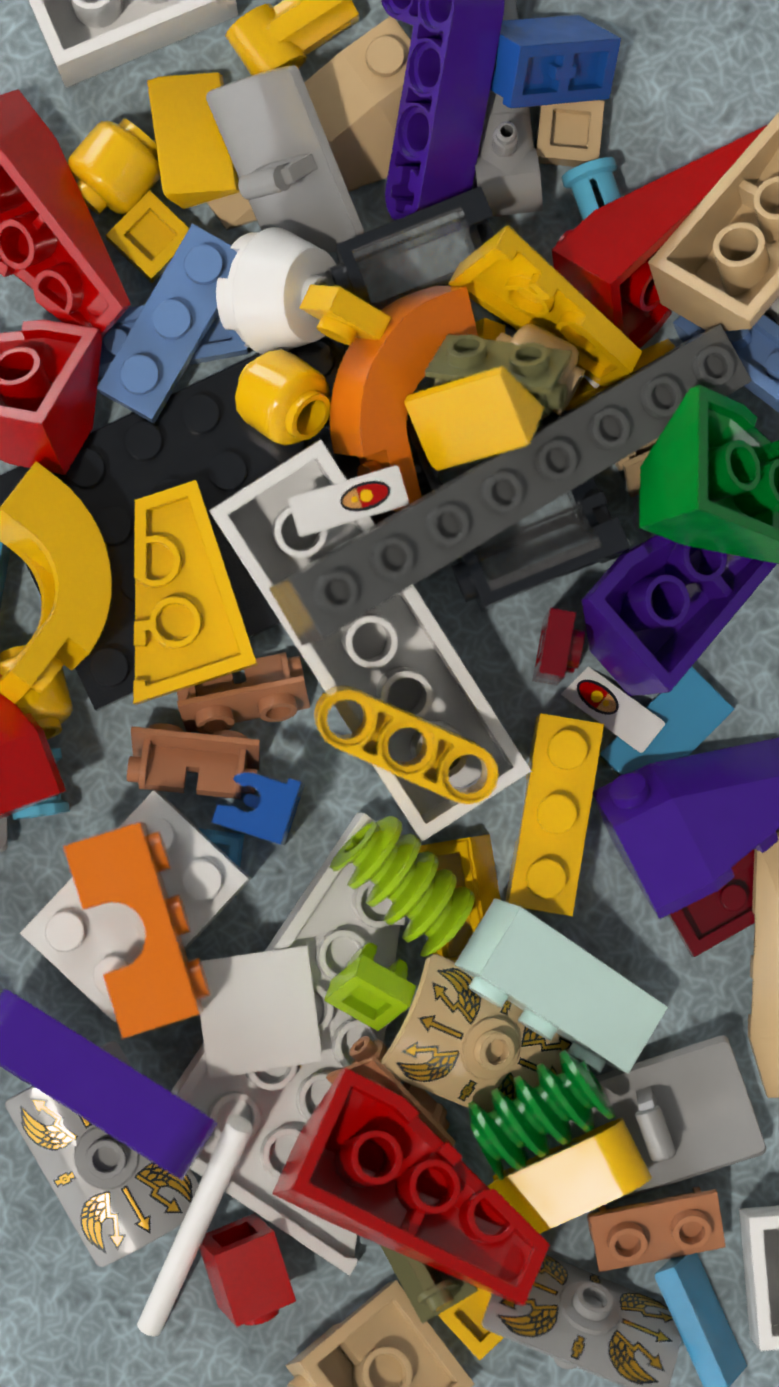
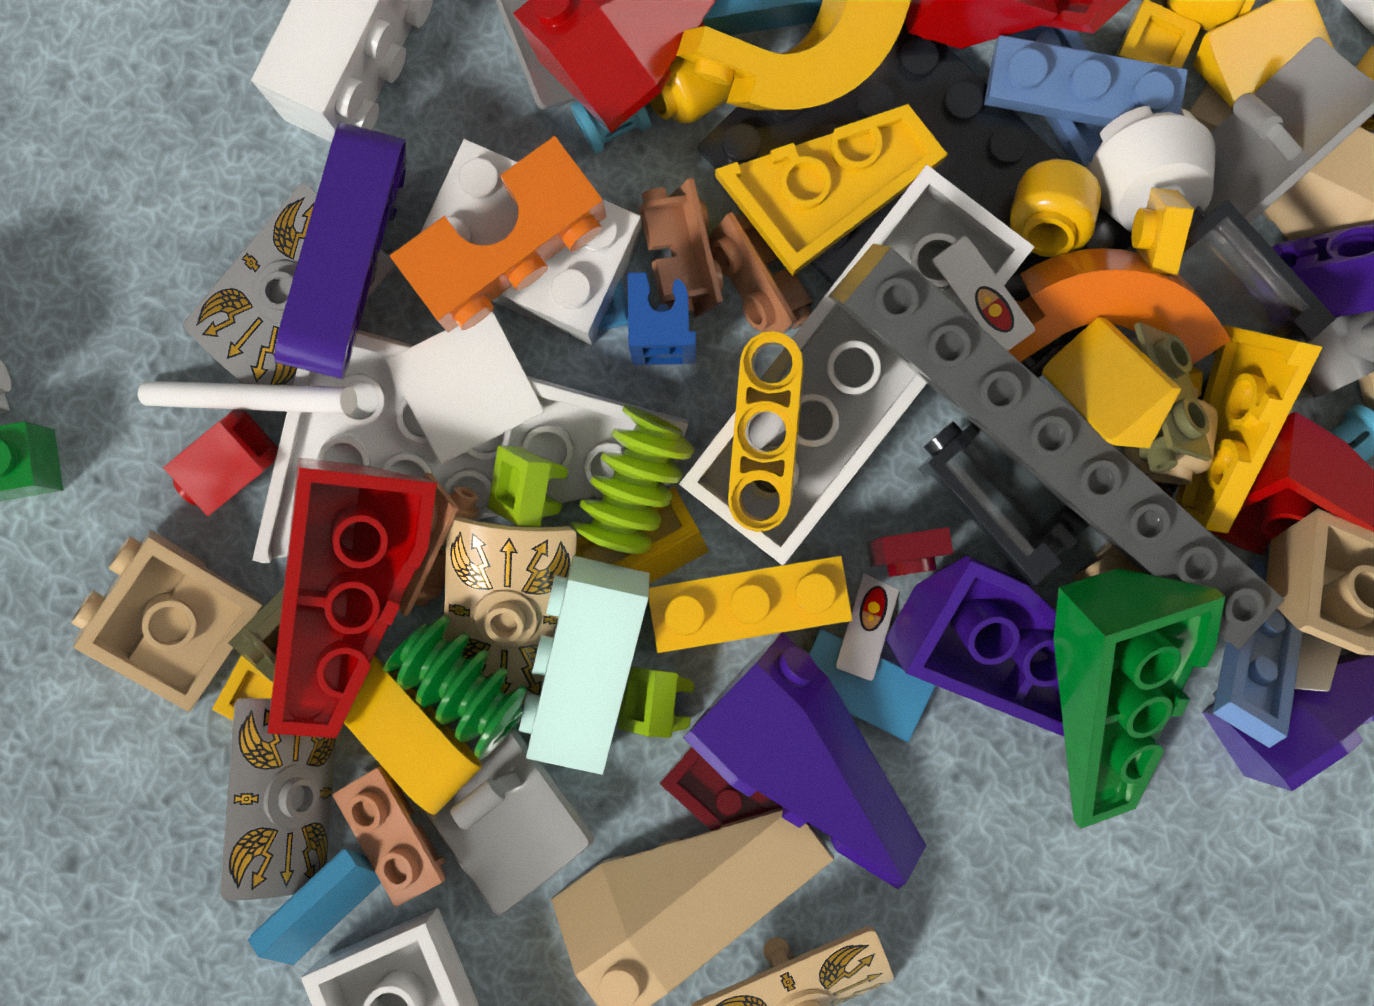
camera: 70 degrees right, 0 degrees up
(614, 938) = (650, 702): none -> lime tile

